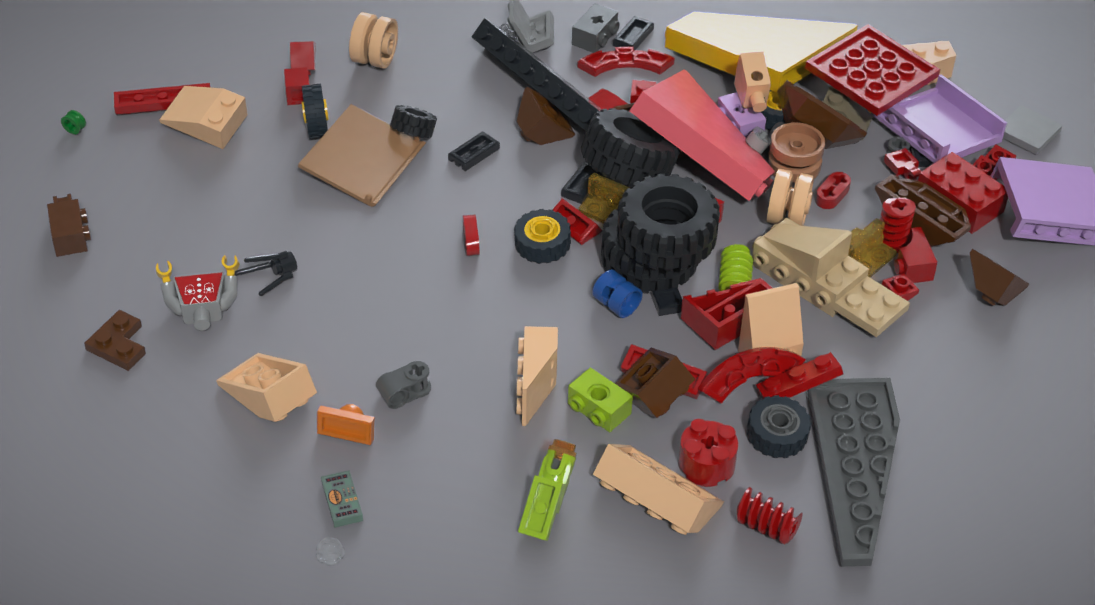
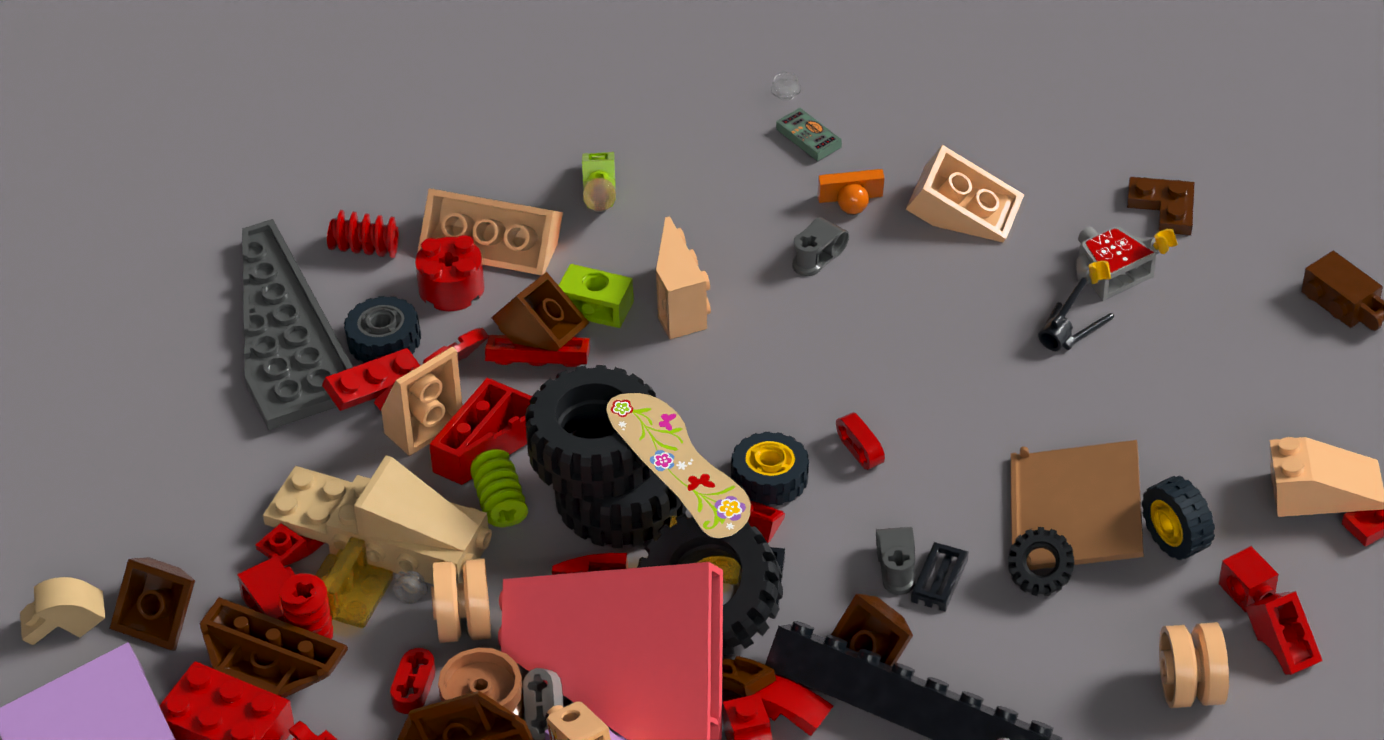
camera: 160 degrees right, 0 degrees up
(495, 158) = (896, 558): none -> dark grey piece
(632, 170) = (664, 446): none -> tan sticker
(1062, 282) = (62, 604): none -> tan brick

